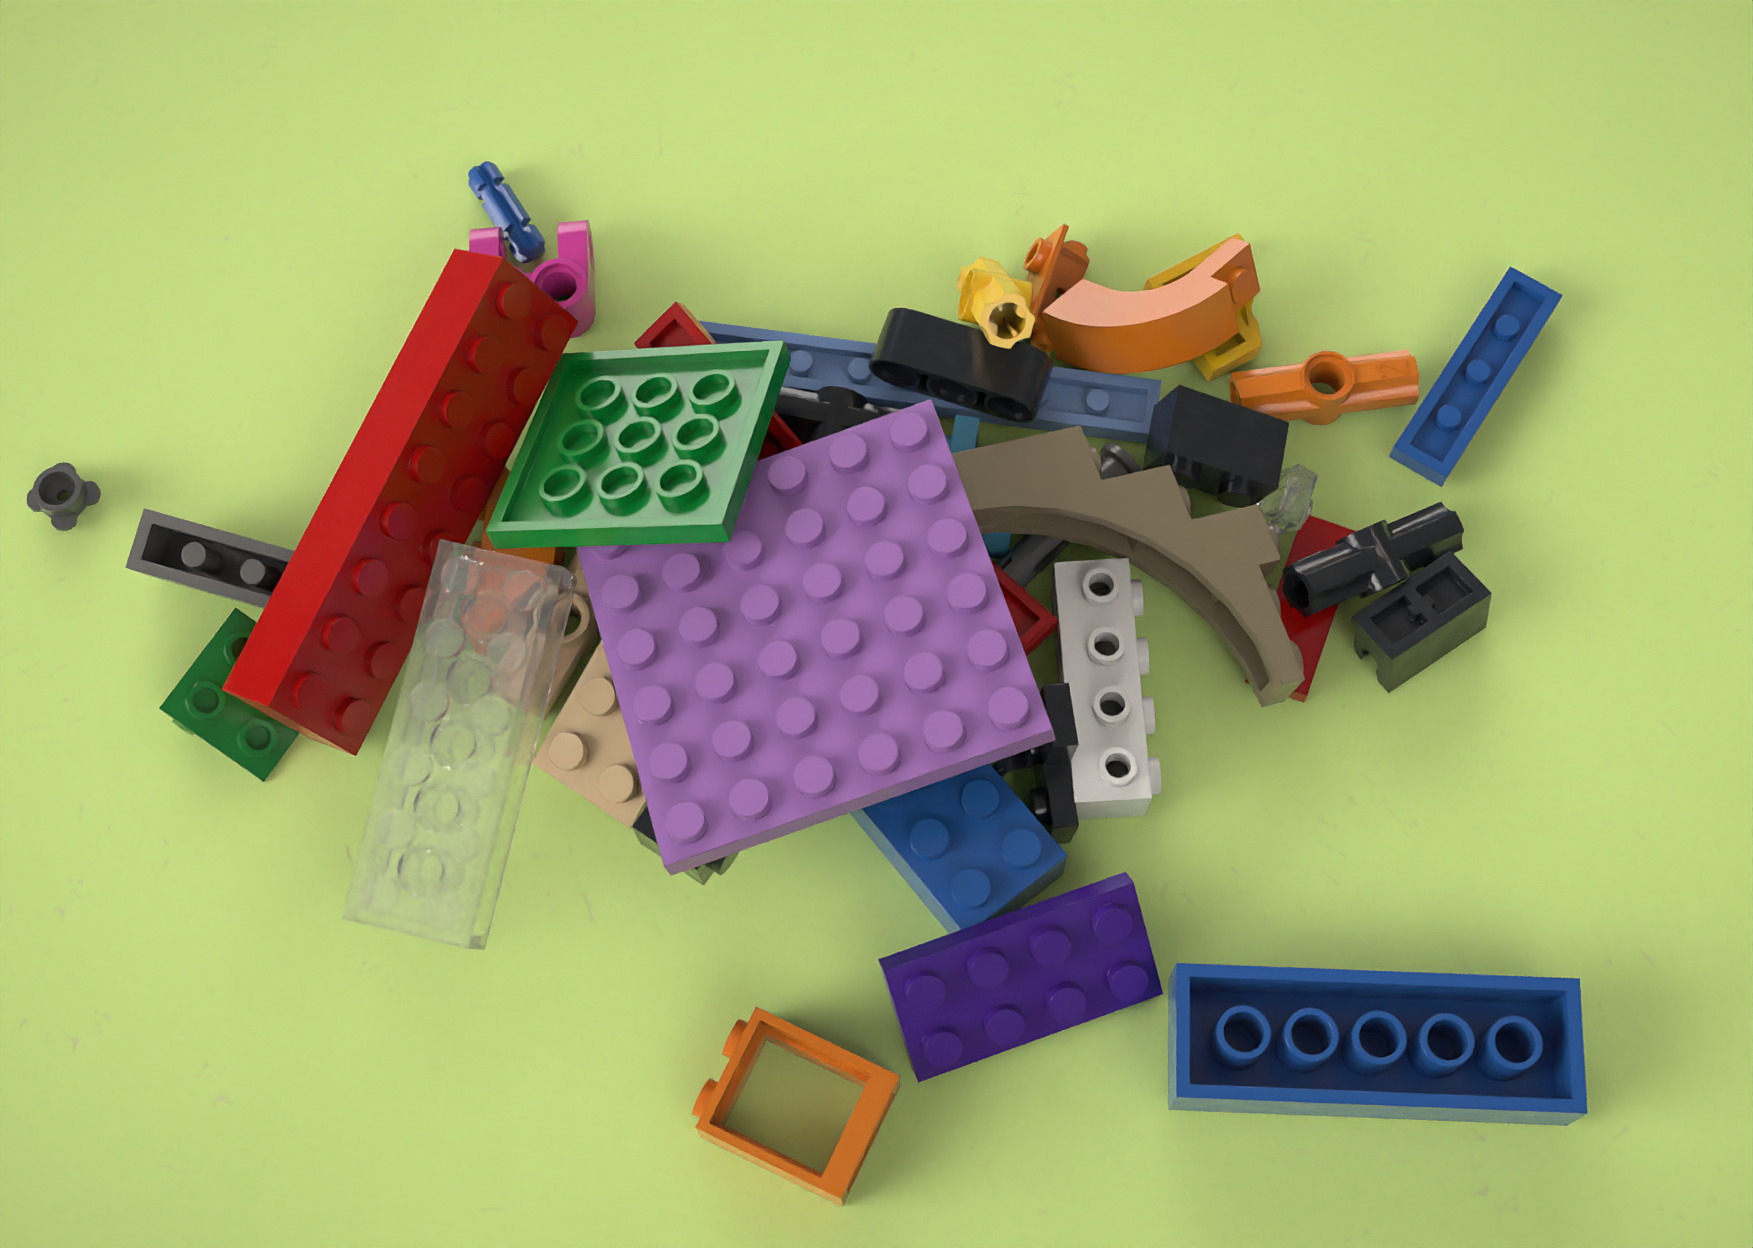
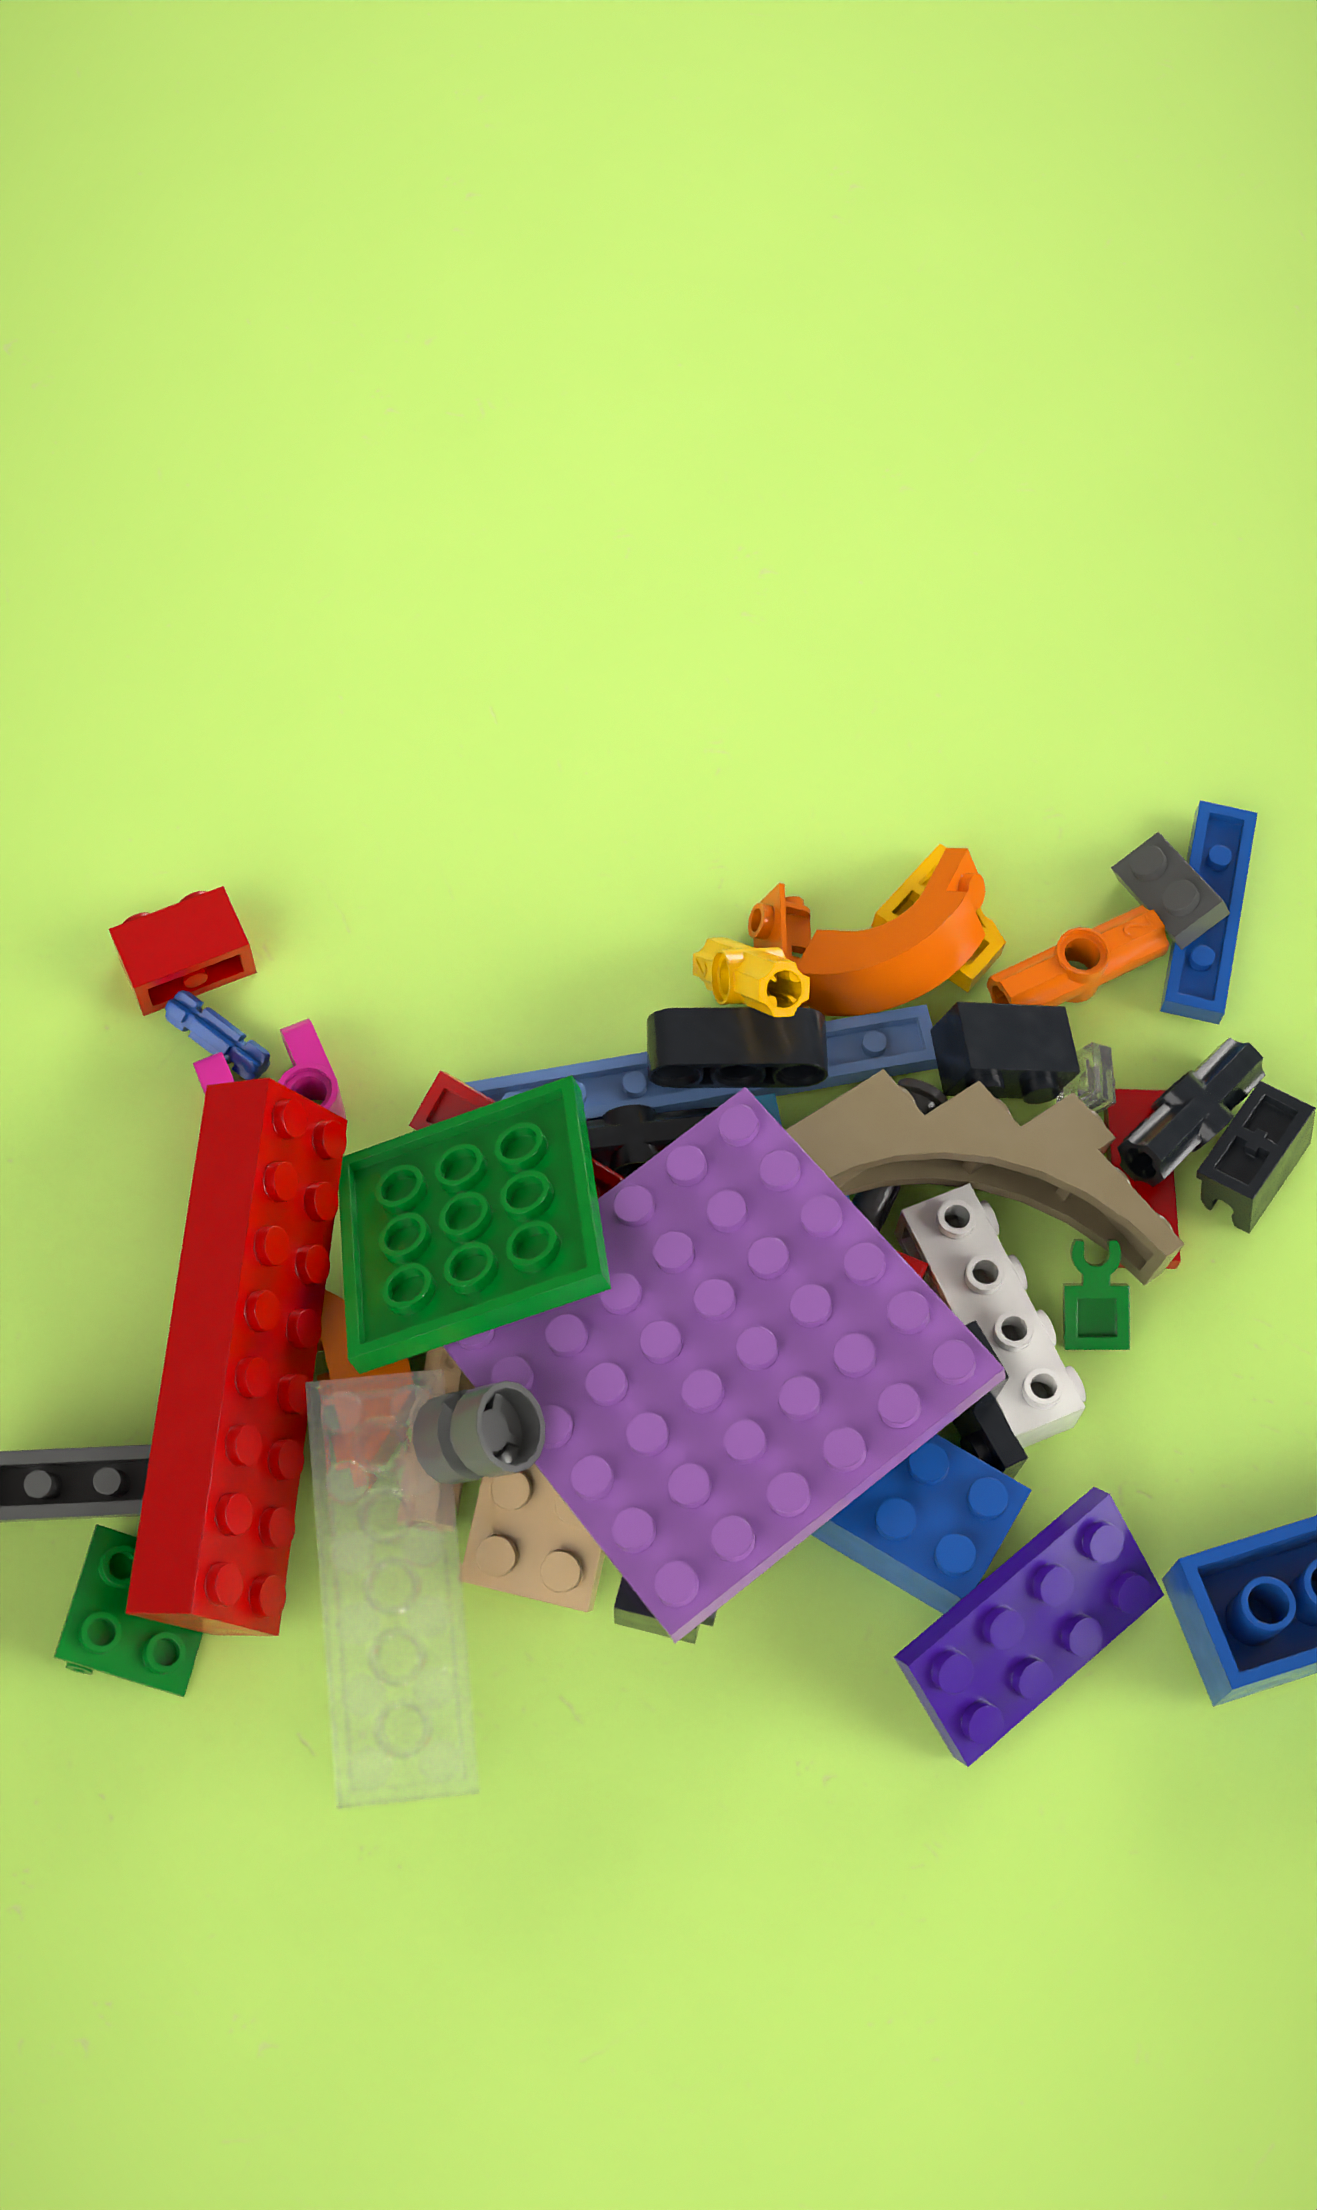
camera: 25 degrees left, 5 degrees down
(502, 122) = (183, 948): none -> red brick
(568, 632) = (479, 1433): none -> dark grey wheel
(743, 1049) = (935, 1832): orange window -> none
(1204, 712) = (1096, 1310): none -> green plate
(1442, 344) = (1170, 886): none -> dark grey plate

